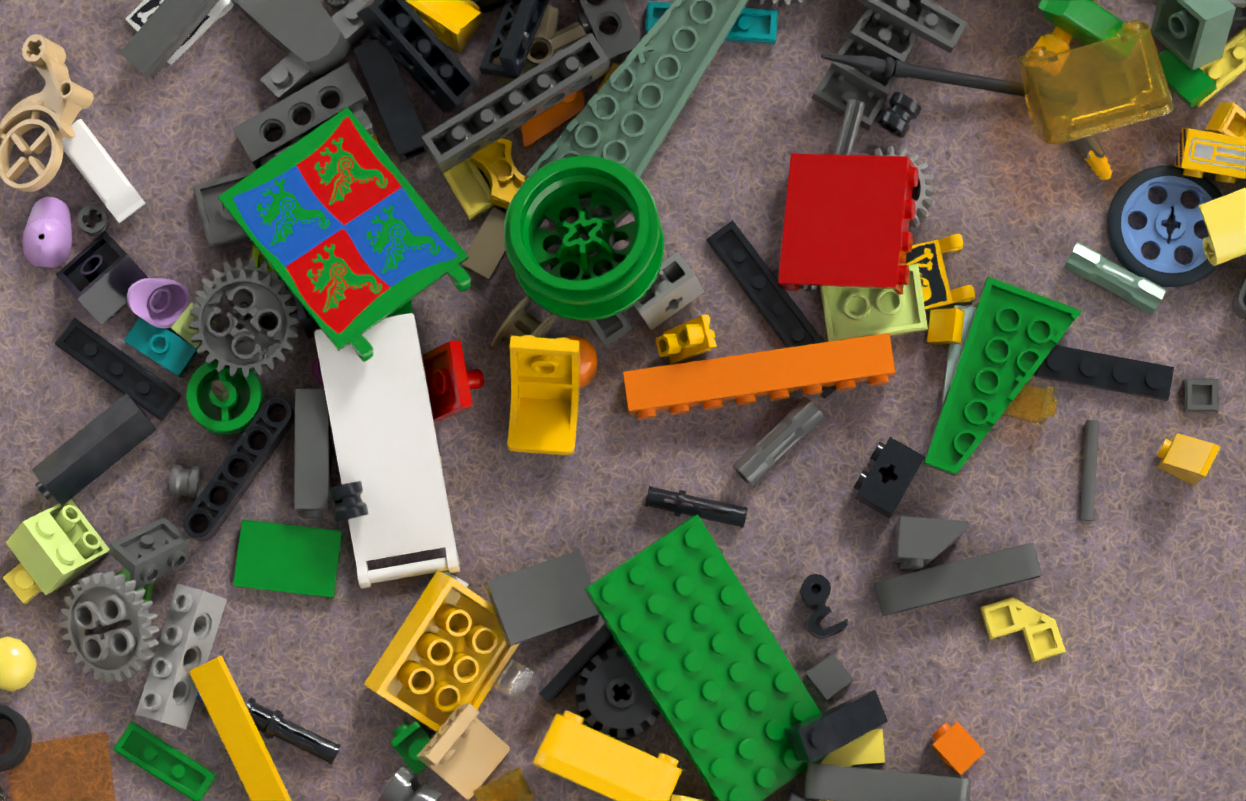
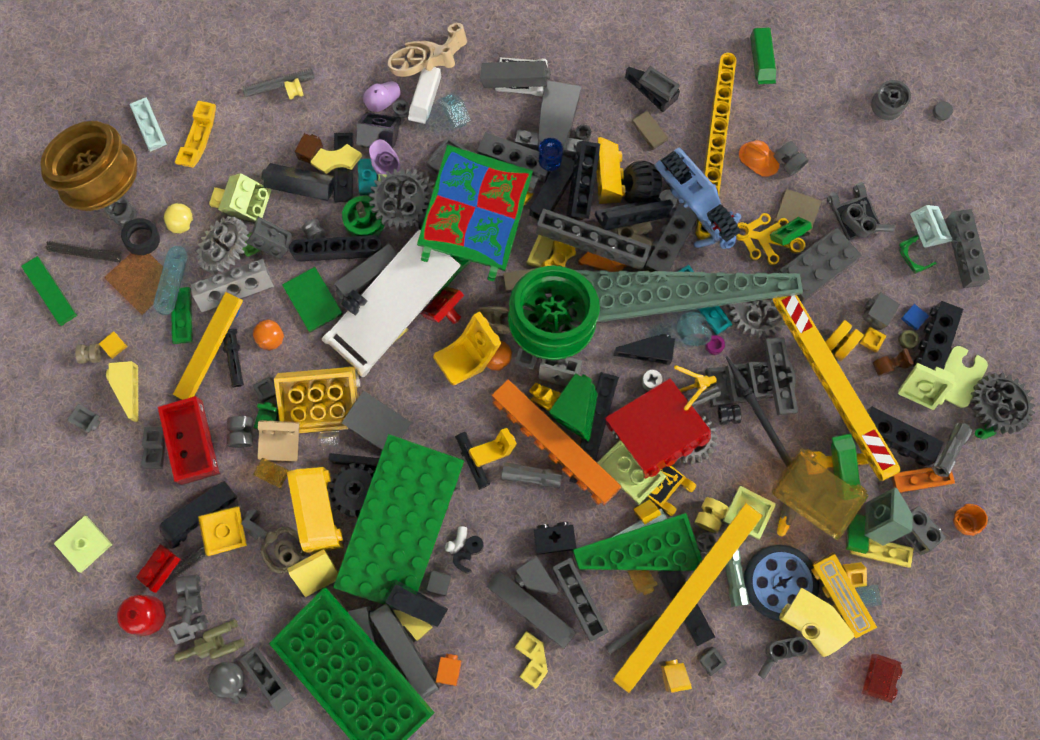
camera: 50 degrees right, 5 degrees down
(52, 397) = (308, 147): none -> reddish brown brick
(93, 384) = (328, 160): none -> light yellow tile
(103, 739) = (170, 280): none -> clear light blue plate
(157, 145) = (454, 110): none -> clear light blue slope
(292, 659) = (268, 335): none -> orange hair
(345, 64) = (550, 154): none -> clear blue wheel
(371, 719) = (265, 389): none -> dark grey tile
(705, 464) = (493, 450): none -> yellow bracket
(731, 144) = (652, 349): none -> black slope
(734, 308) = (576, 406): none -> green slope
(739, 67) = (691, 324): none -> clear light blue helmet
(771, 187) = (649, 383): none -> white wheel
(787, 56) = (716, 345): none -> magenta tile
(796, 609) = (459, 542): none -> white arm
(829, 118) = (701, 384): none -> yellow plant
(996, 504) = (580, 600): none -> dark grey brick
(1019, 256) = (711, 515): none -> light yellow wheel
(1048, 194) = (757, 502): none -> yellowish green plate
(1048, 278) = (707, 541): none -> dark grey wheel
(1099, 361) = (687, 598): none -> yellow beam

